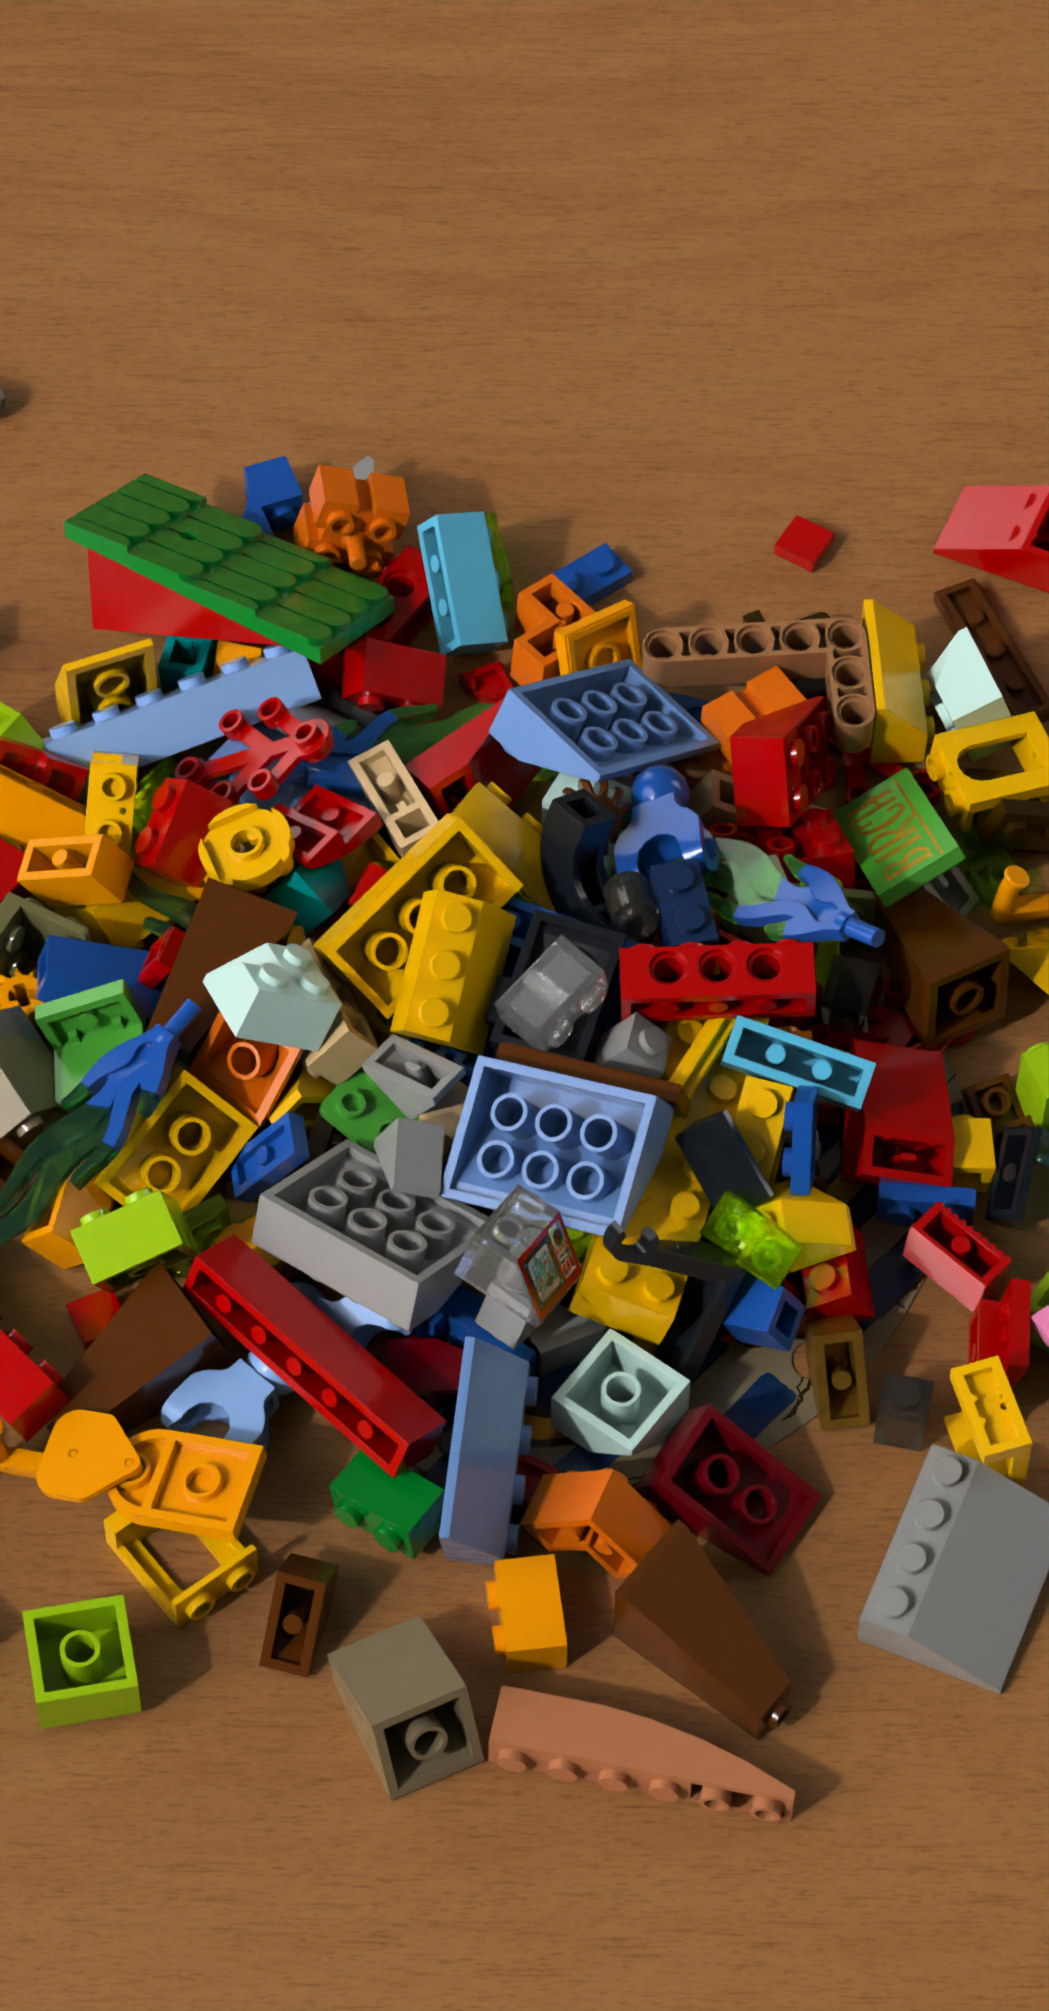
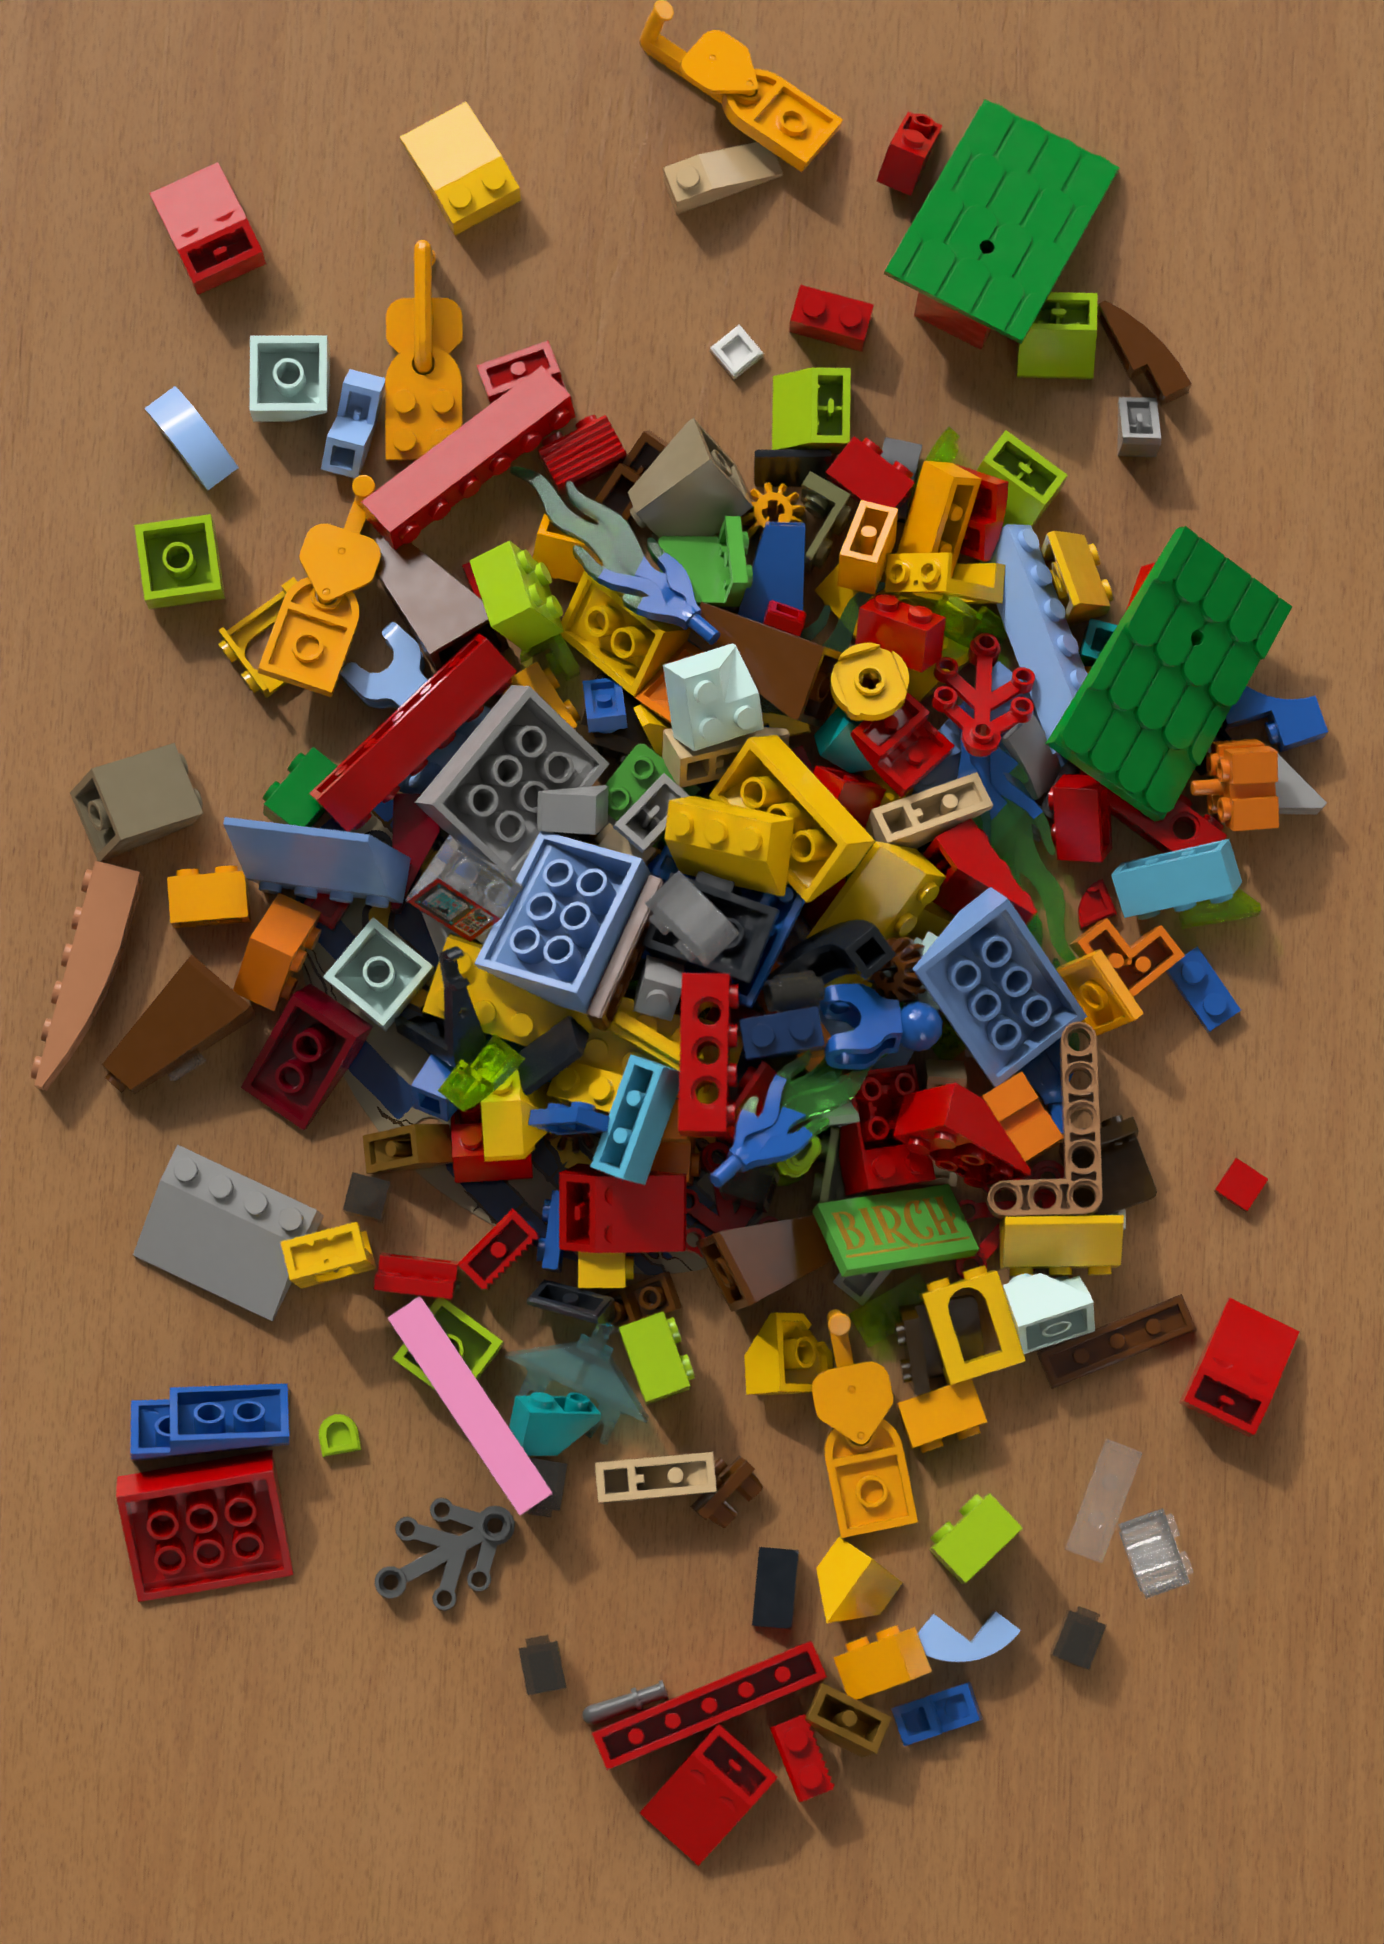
camera: 90 degrees right, 25 degrees up
(298, 1614) = (219, 725): reddish brown slope -> none

